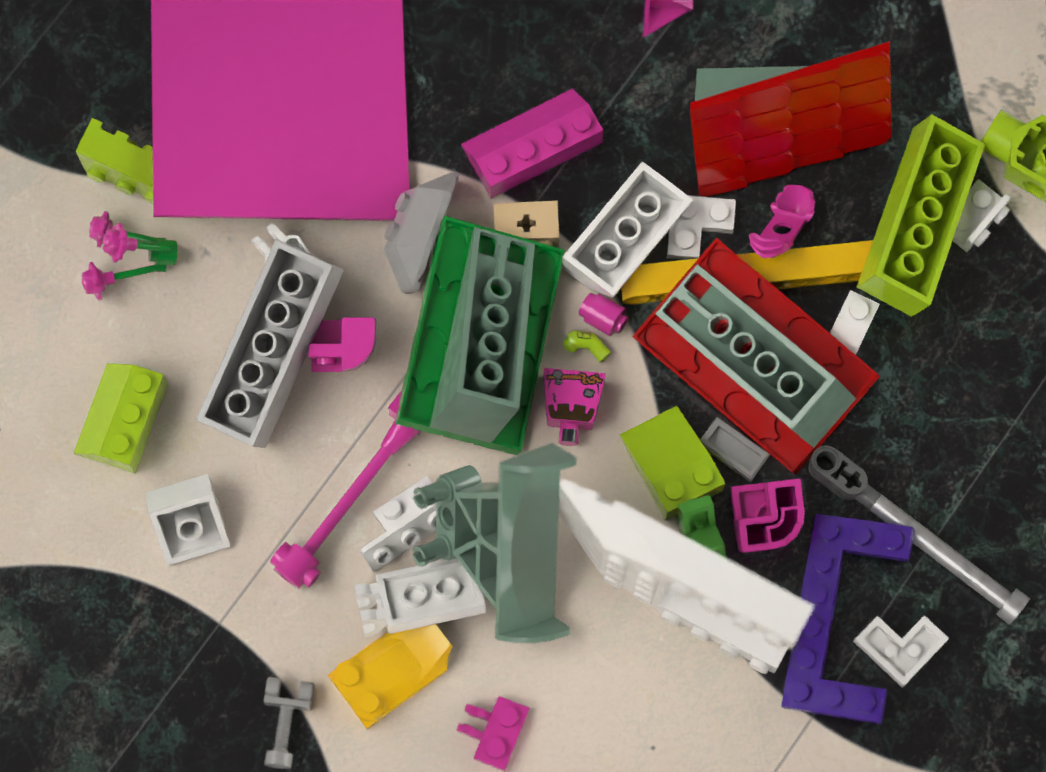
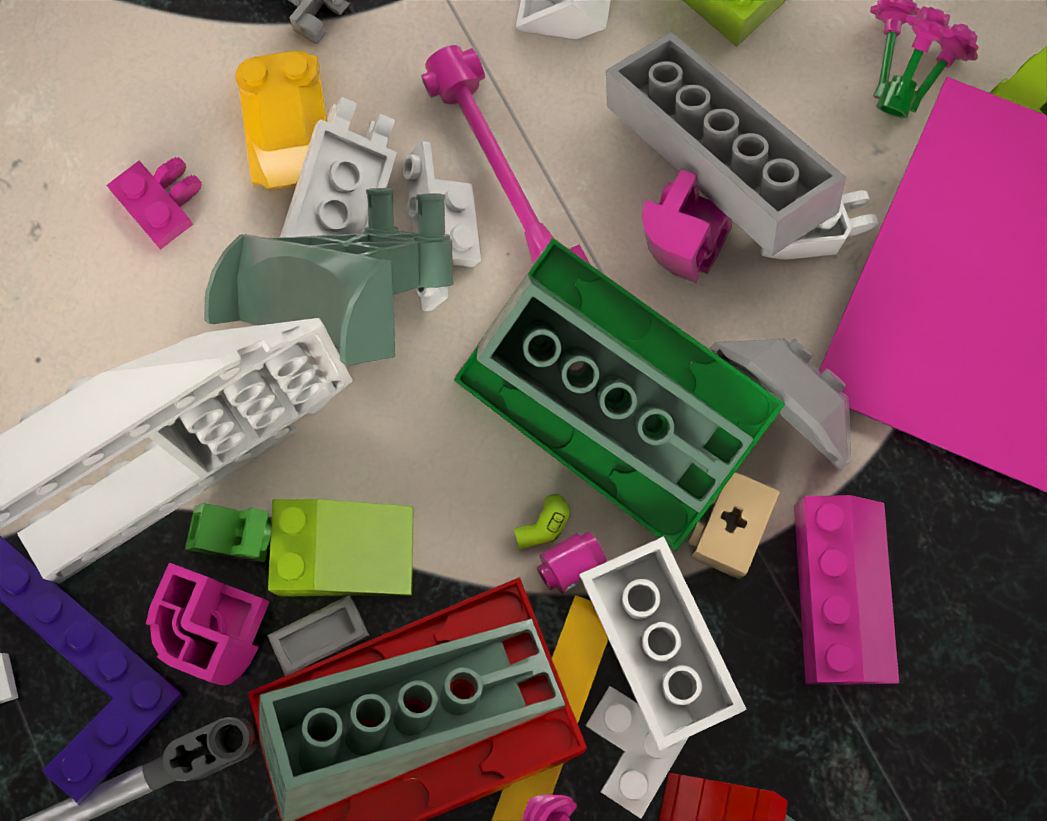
camera: 120 degrees right, 0 degrees up
(572, 401) = (479, 465): dark pink torso -> none

